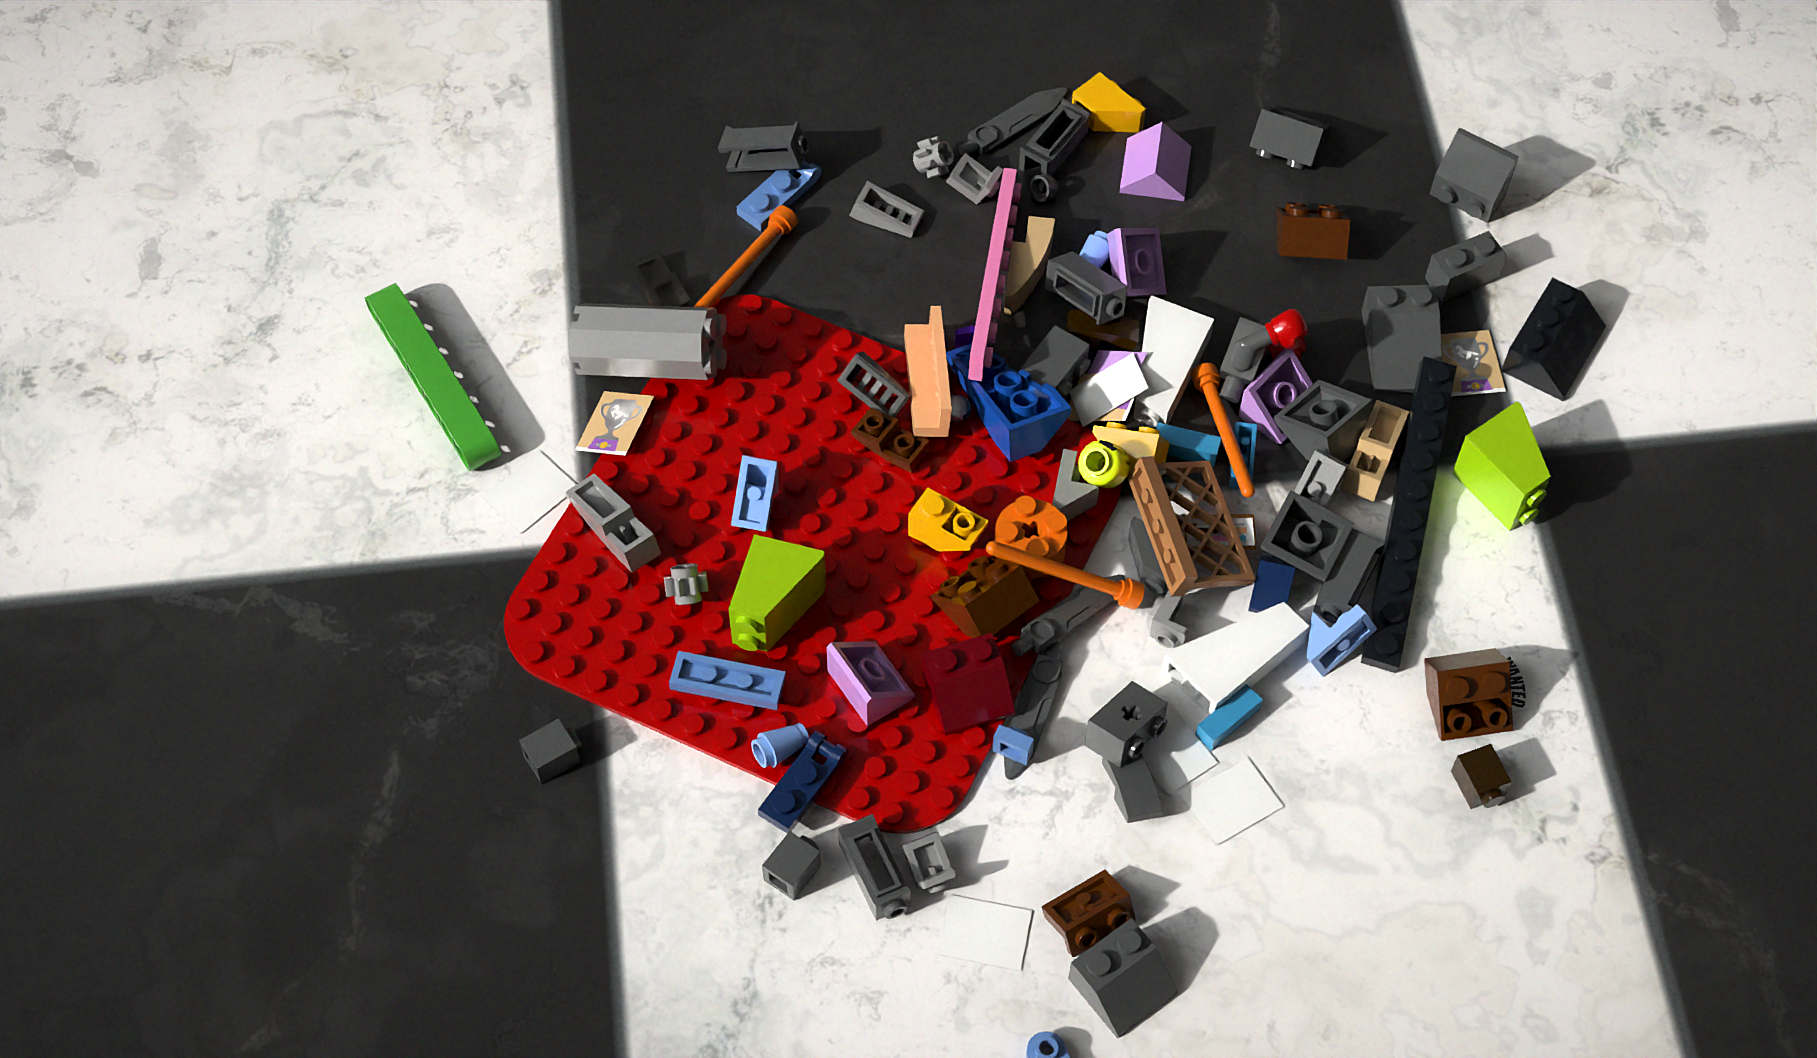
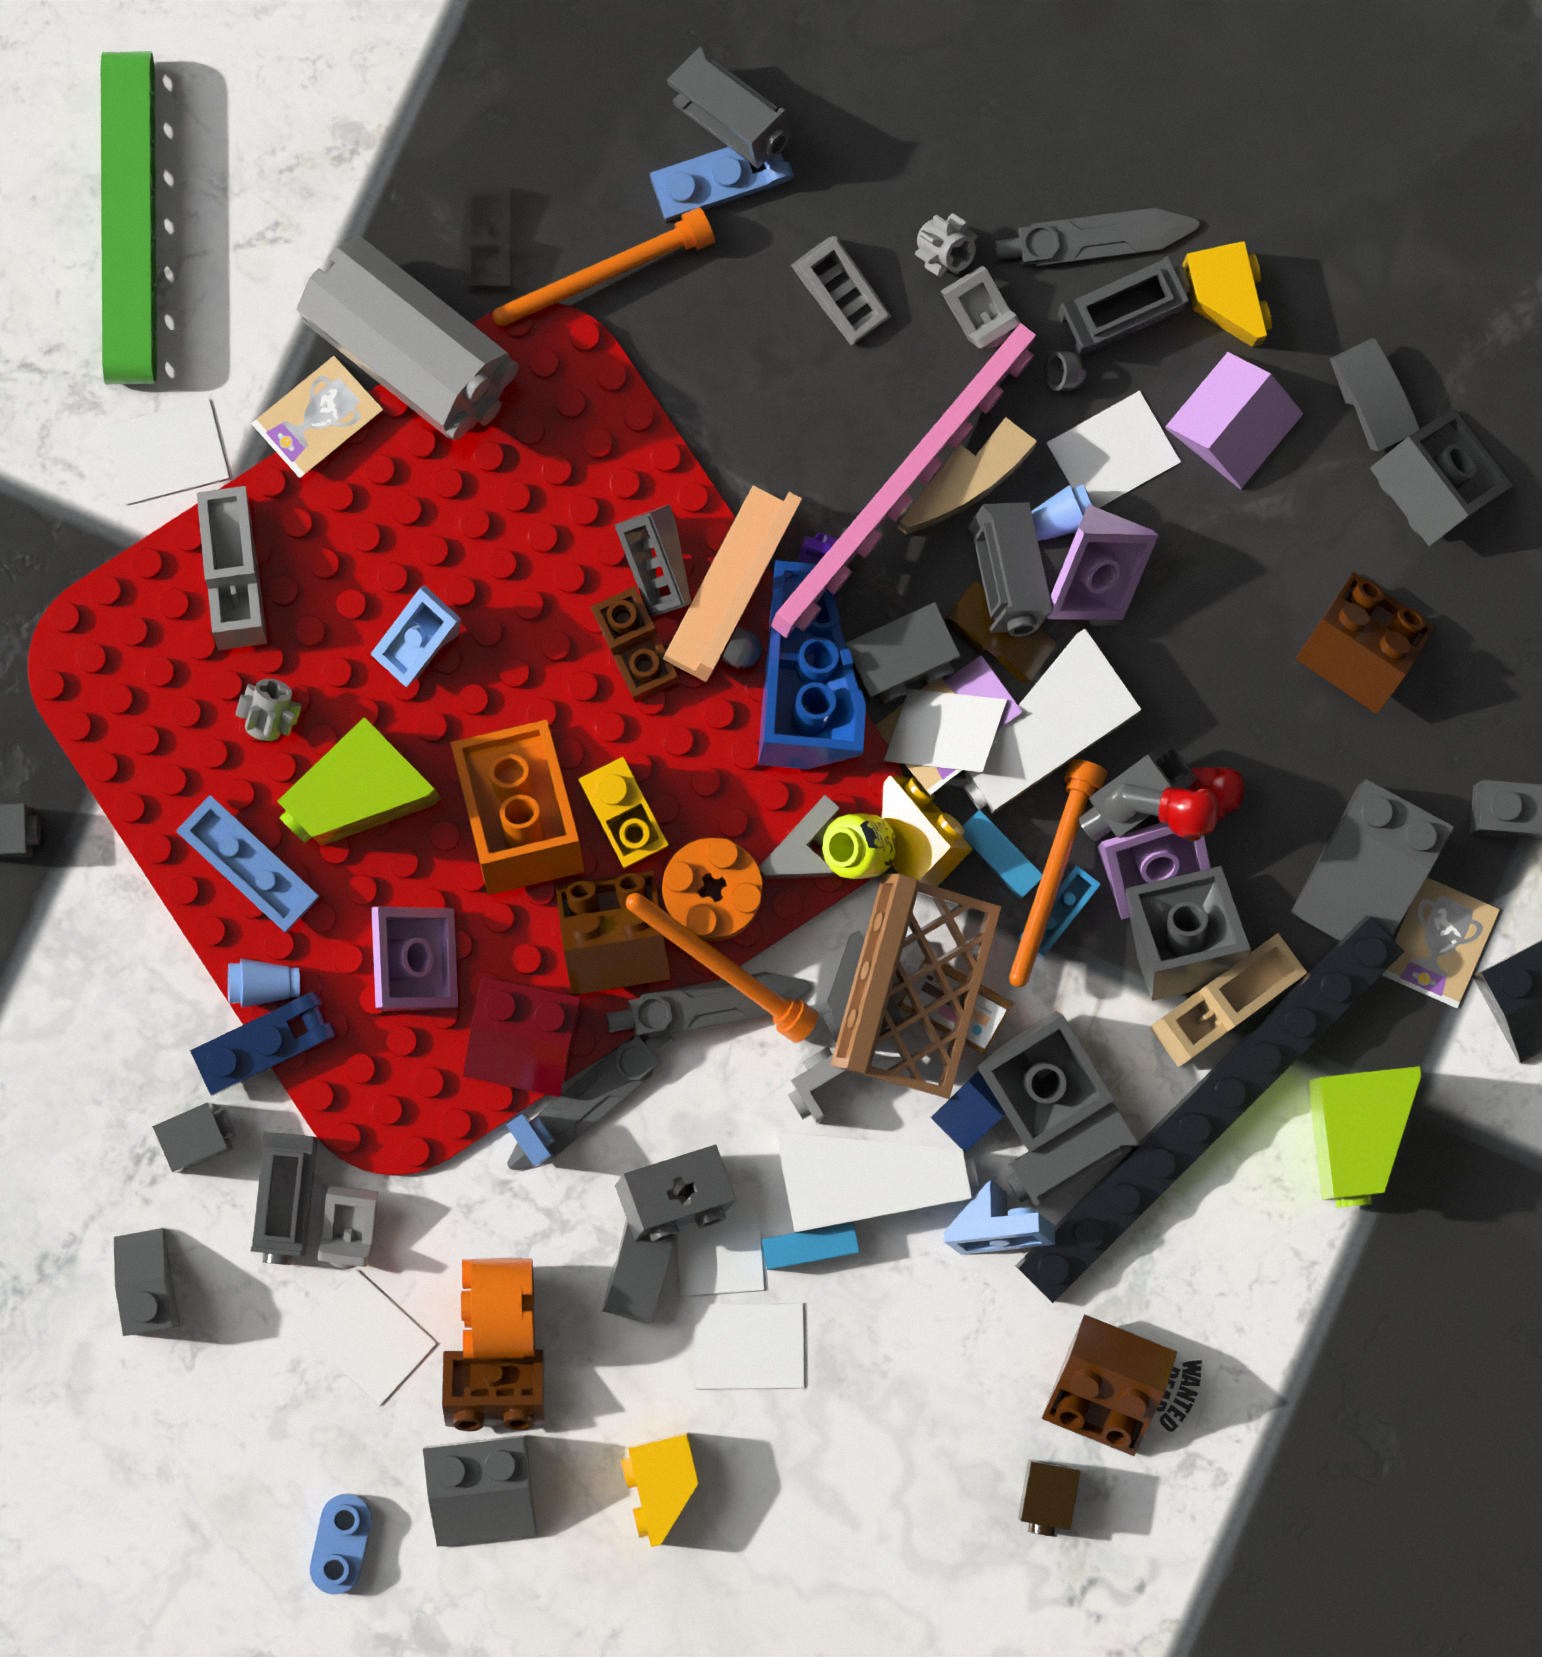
camera: 30 degrees right, 25 degrees up
(818, 977) = (144, 1283): none -> dark grey slope
(882, 560) = (517, 807): none -> orange slope
(1062, 851) = (498, 1308): none -> orange brick
(1098, 211) = (1114, 450): none -> white sticker
(1214, 109) = (1376, 394): none -> dark grey slope
(1238, 905) = (664, 1480): none -> yellow slope
(1322, 478) = (1113, 1015): light grey slope -> none

